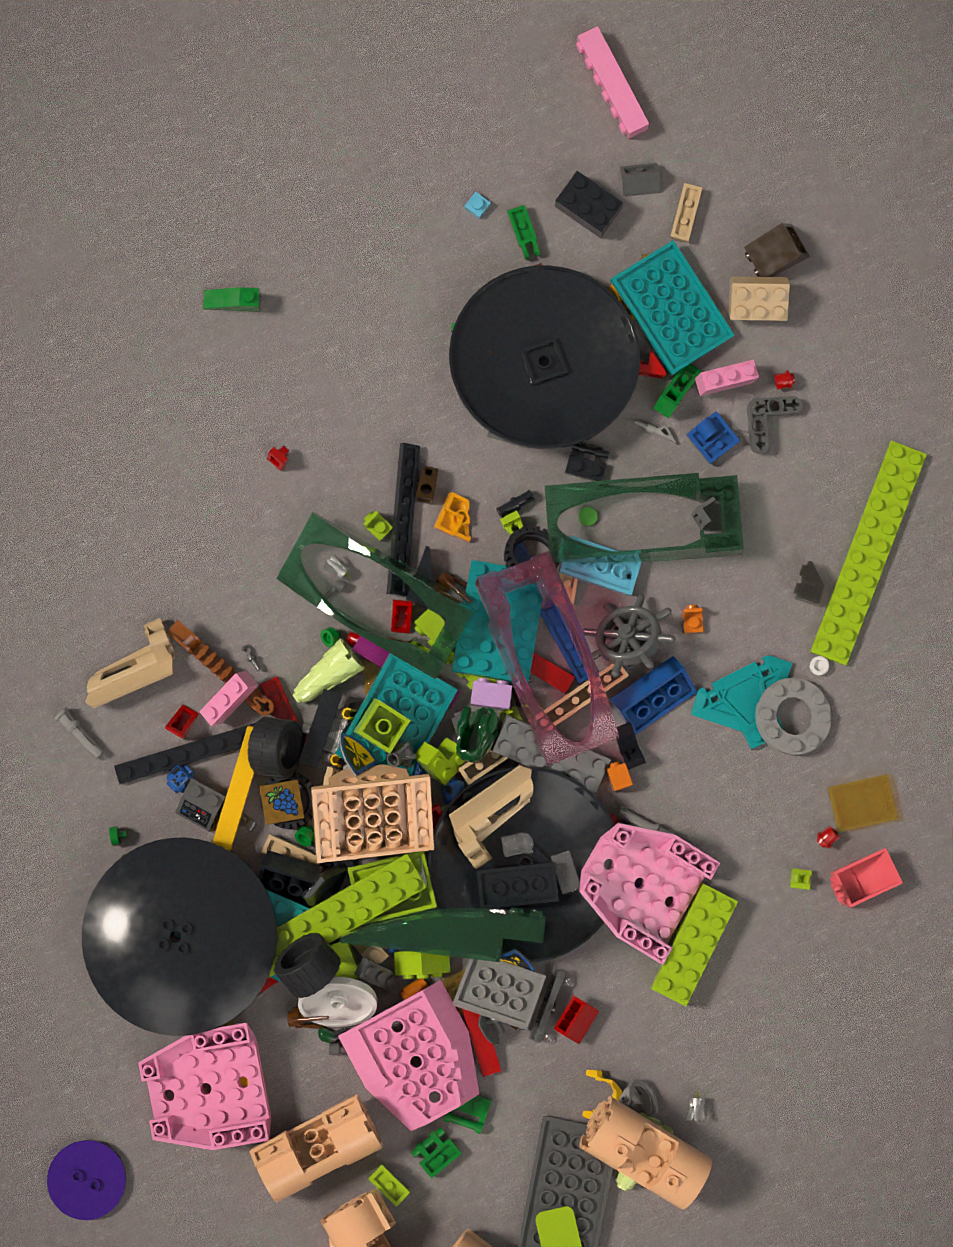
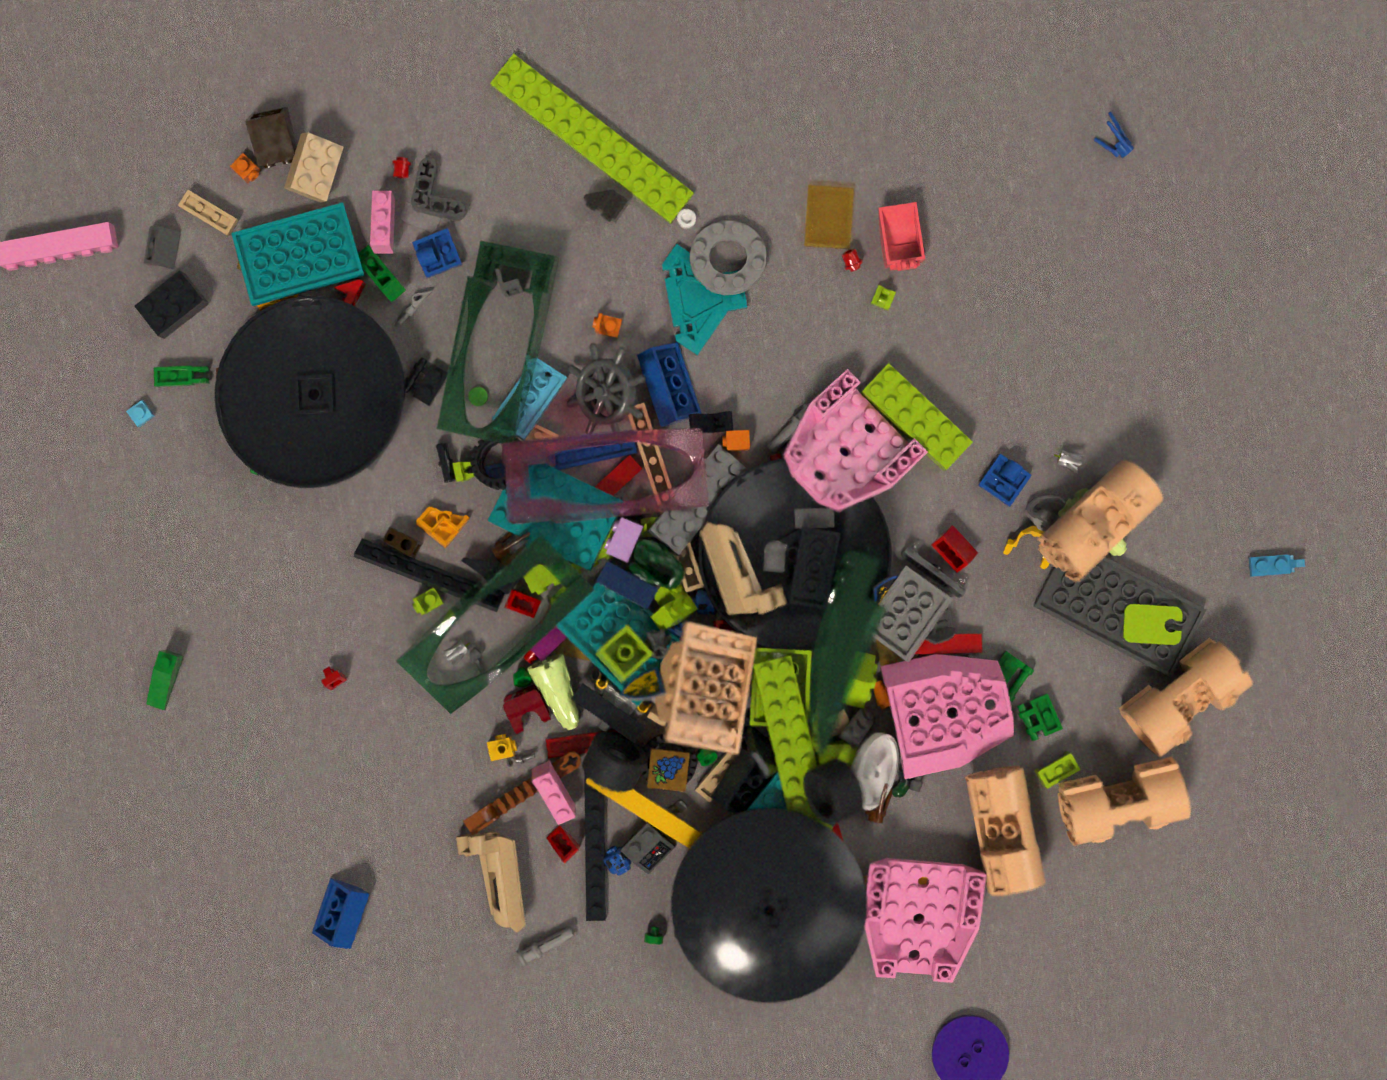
camera: 75 degrees left, 5 degrees up
(56, 529) = (340, 914): none -> blue slope
(258, 636) = (501, 747): none -> yellow brick
(308, 645) = (524, 701): none -> dark red piece
(448, 710) = (627, 585): none -> dark blue panel
(658, 1050) = (1004, 479): none -> blue plate
(738, 235) = (245, 168): none -> orange bracket

